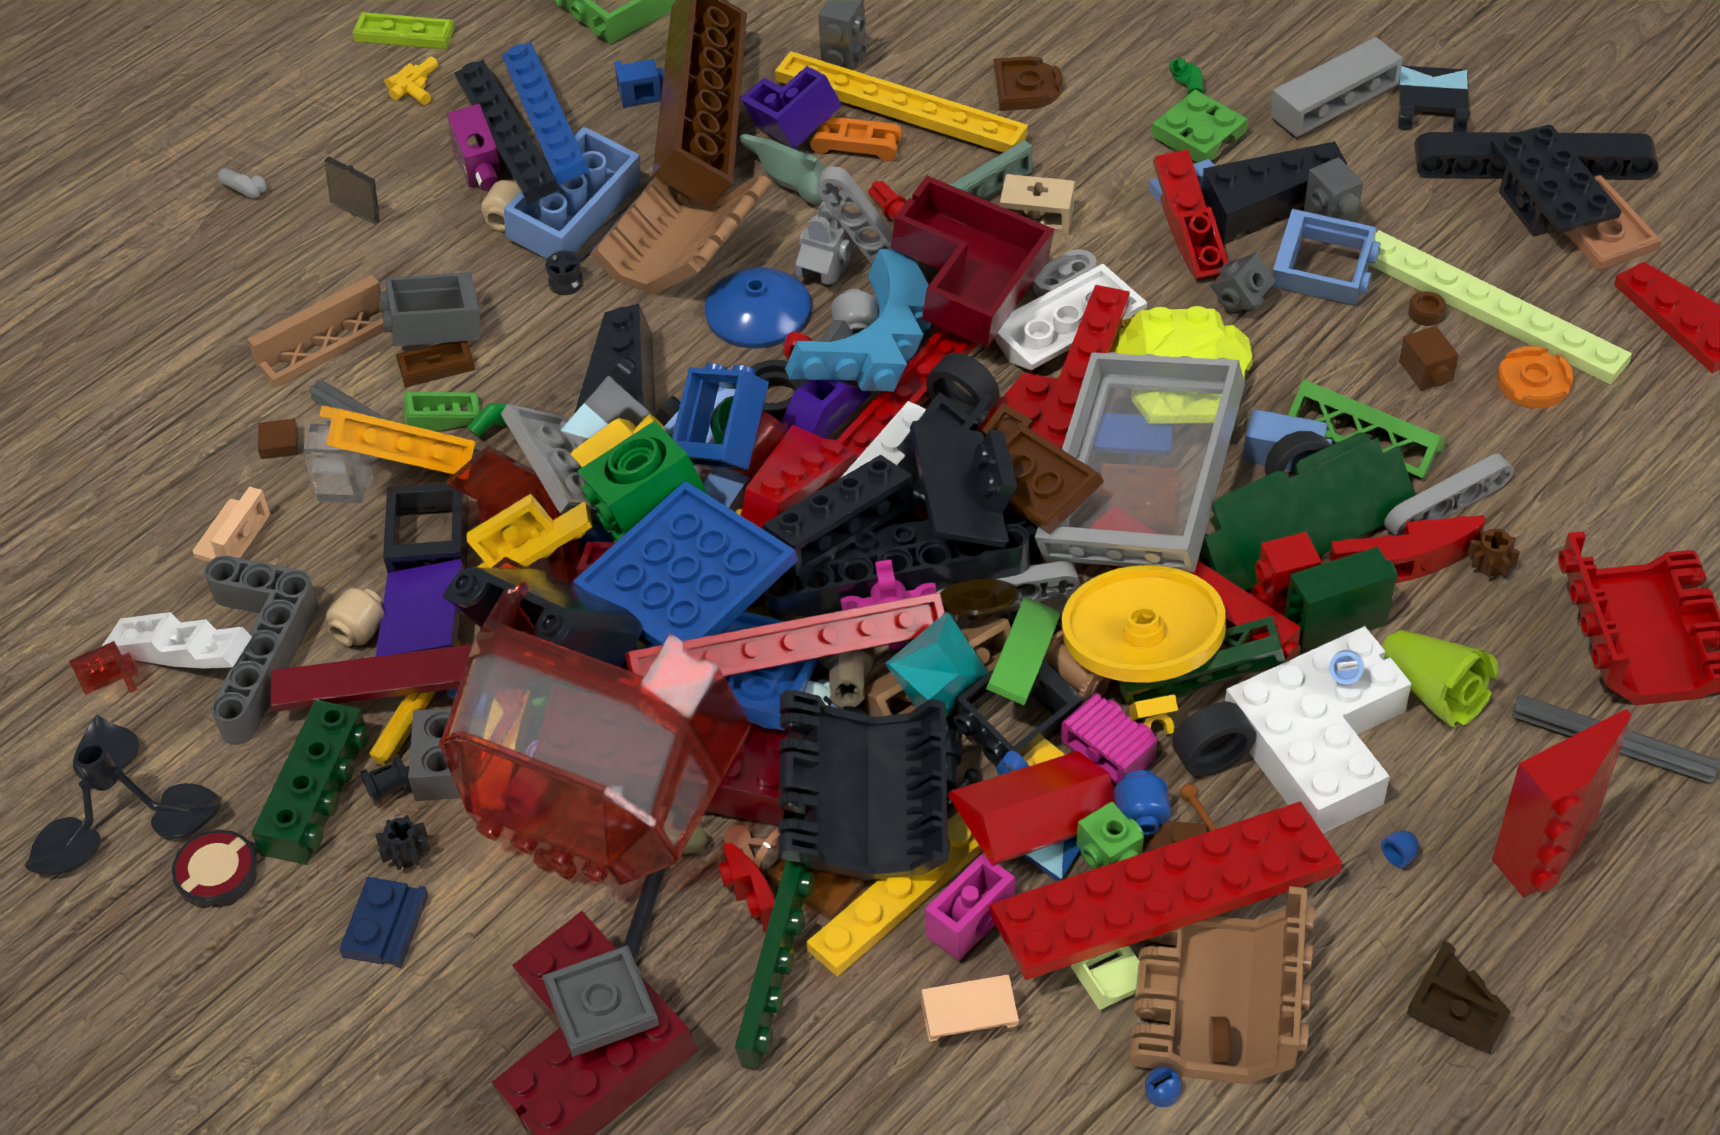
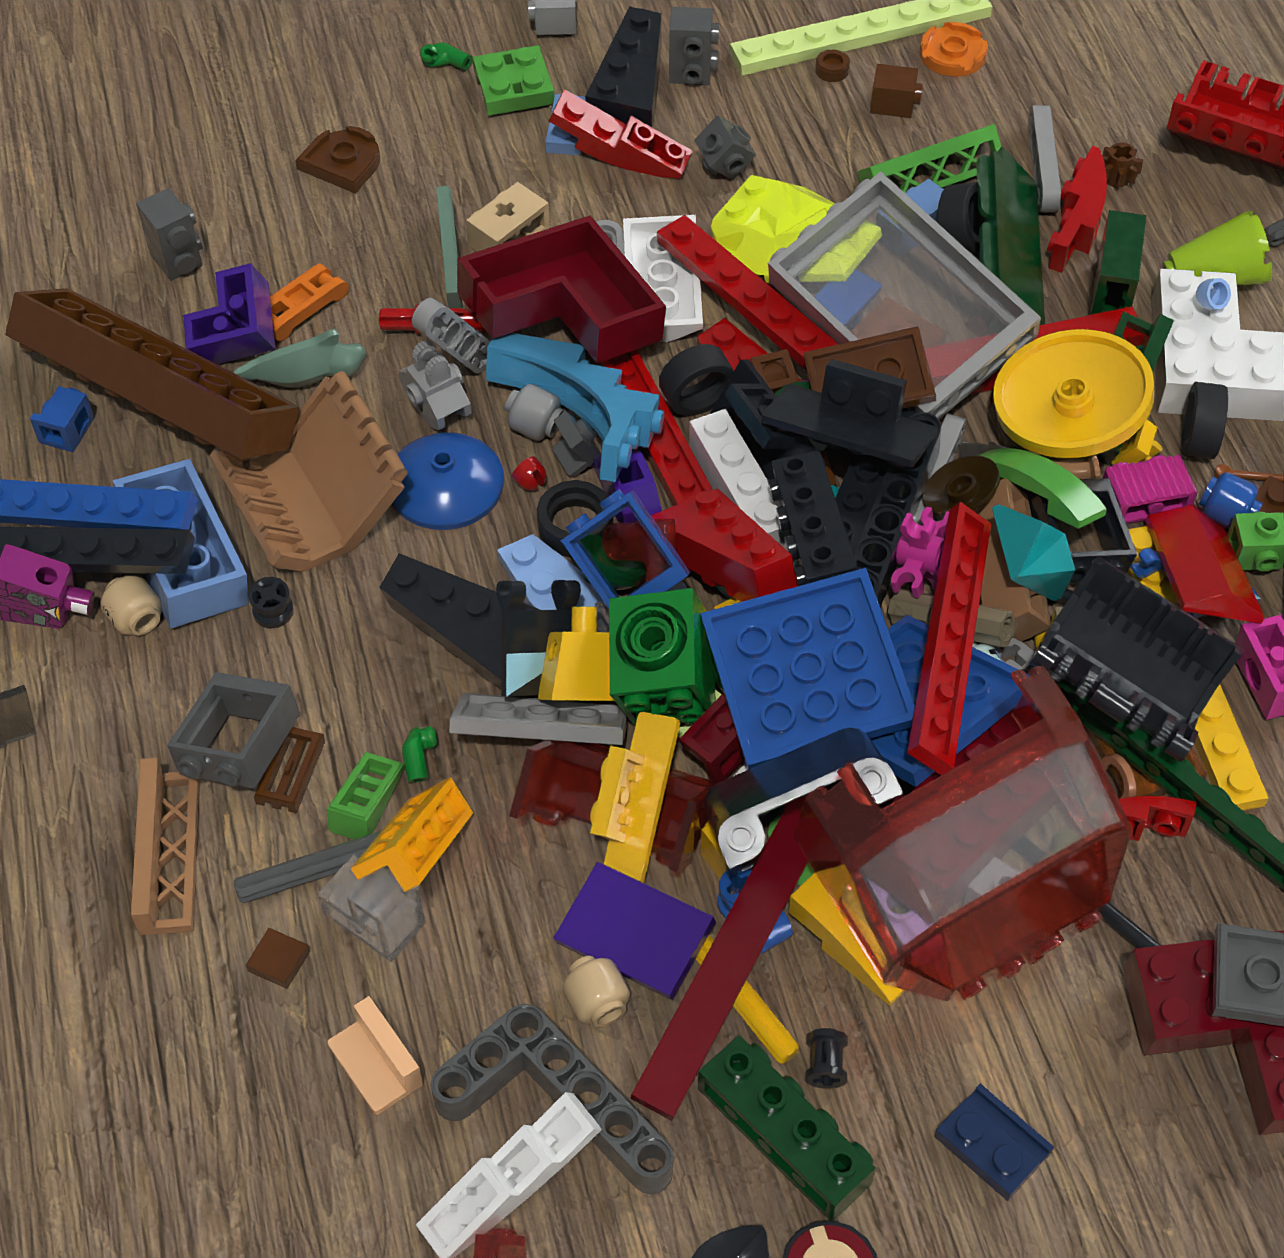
camera: 60 degrees left, 5 degrees up
(402, 842) = (926, 1071): black gear -> none
(424, 500) = (536, 921): black window -> none
(428, 759) = (820, 1005): dark grey brick -> none
(910, 105) = (288, 247): yellow plate -> none
(1277, 562) = (1072, 282): red brick -> none
(1332, 231) = (714, 98): medium blue window -> none

